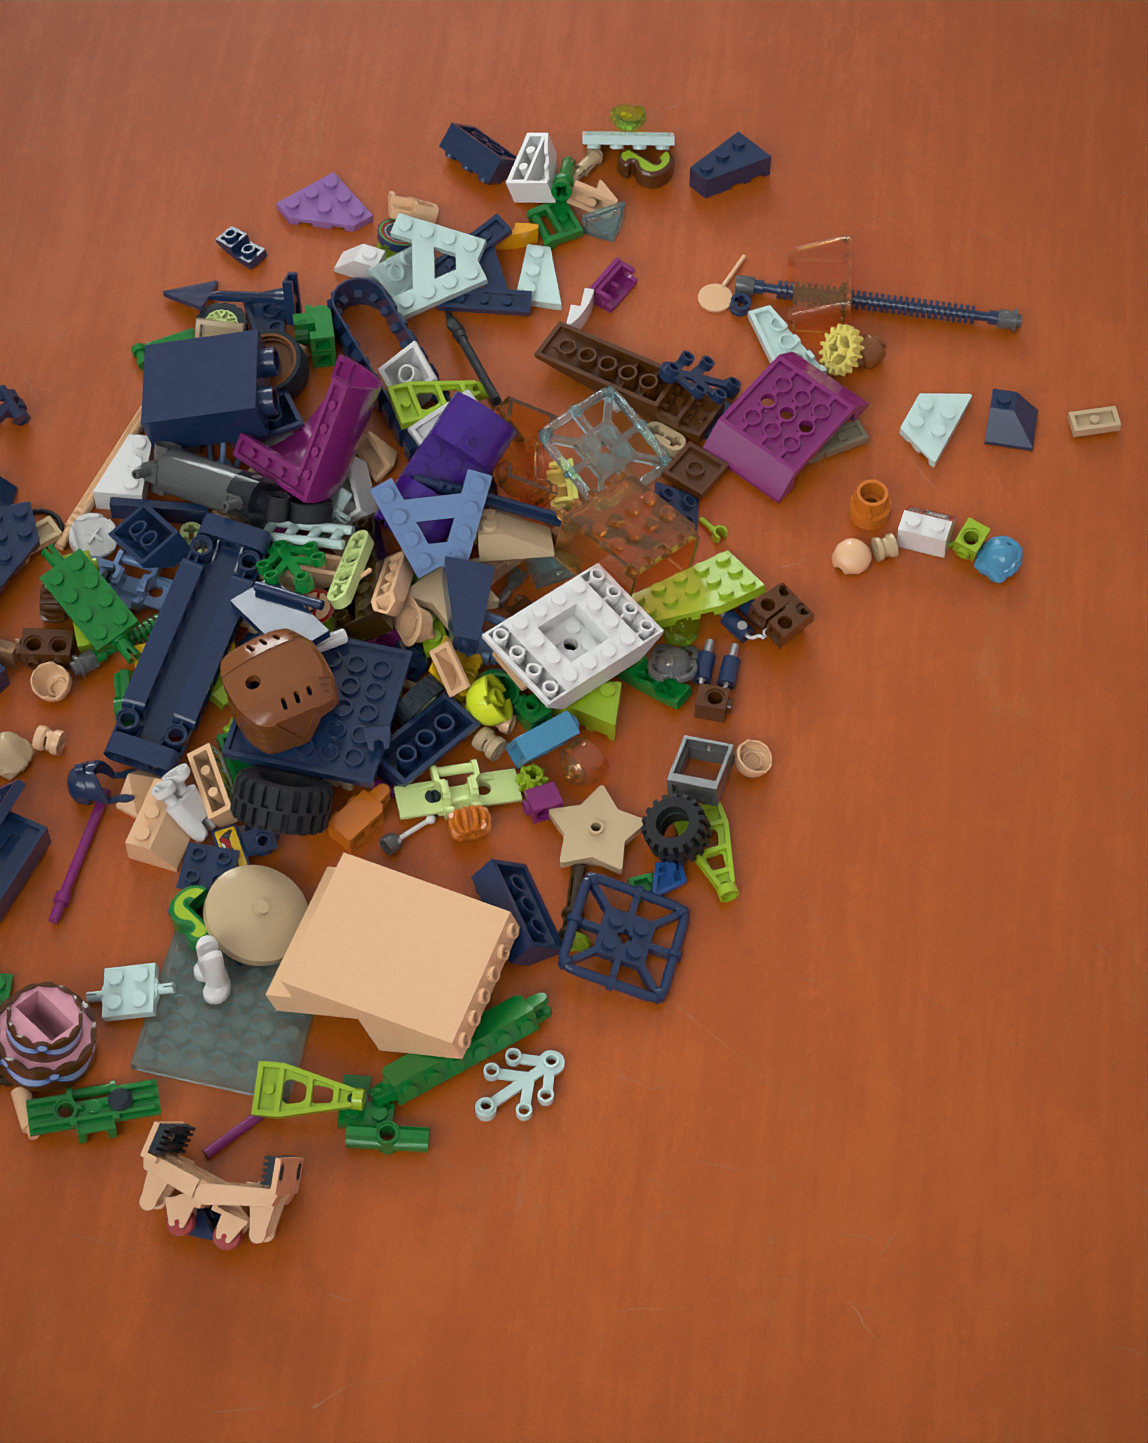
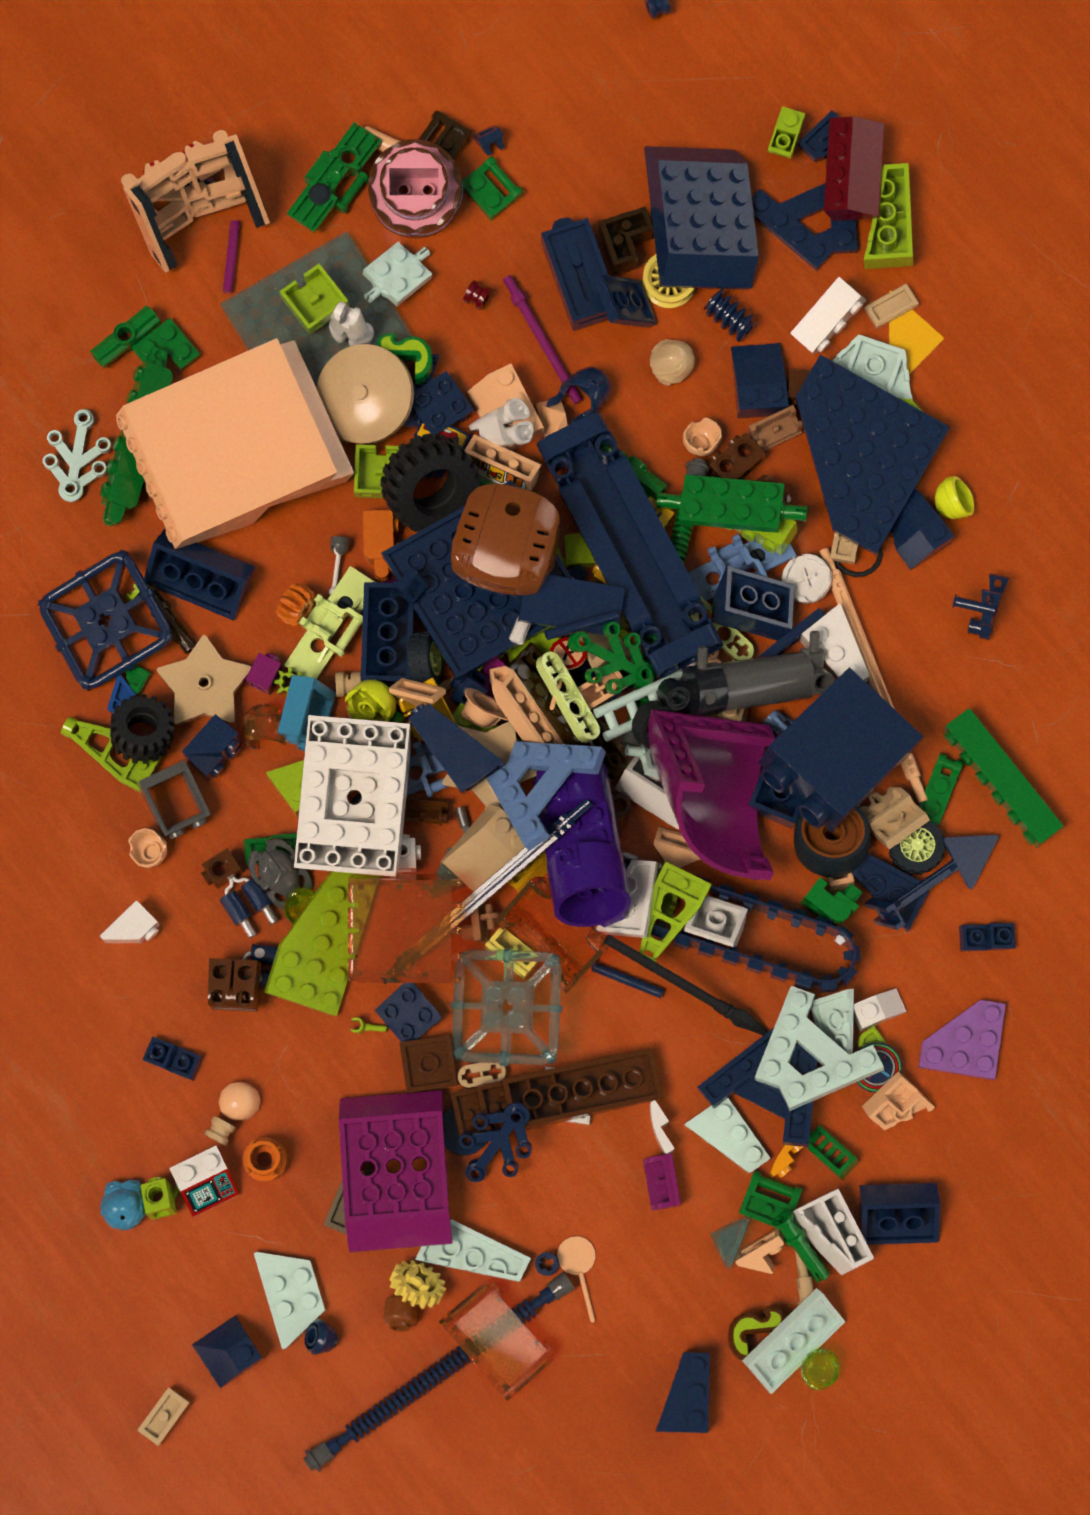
camera: 135 degrees right, 20 degrees up
(49, 740) = (655, 396): light nougat wheel -> none
(89, 925) = (477, 295): none -> dark red wheel
(118, 318) = (1002, 778): none -> green brick
(214, 1020) = (315, 300): none -> lime piece
(270, 1088) = (230, 290): lime plate -> none
(304, 861) = (369, 470): none -> lime piece
(483, 202) = (848, 1166): none -> green slope
(634, 779) = (212, 748): none -> dark blue slope
(819, 721) = (132, 926): none -> white slope
(872, 620) = (172, 1058): none -> dark blue slope
(939, 378) = (320, 1337): none -> dark blue cone

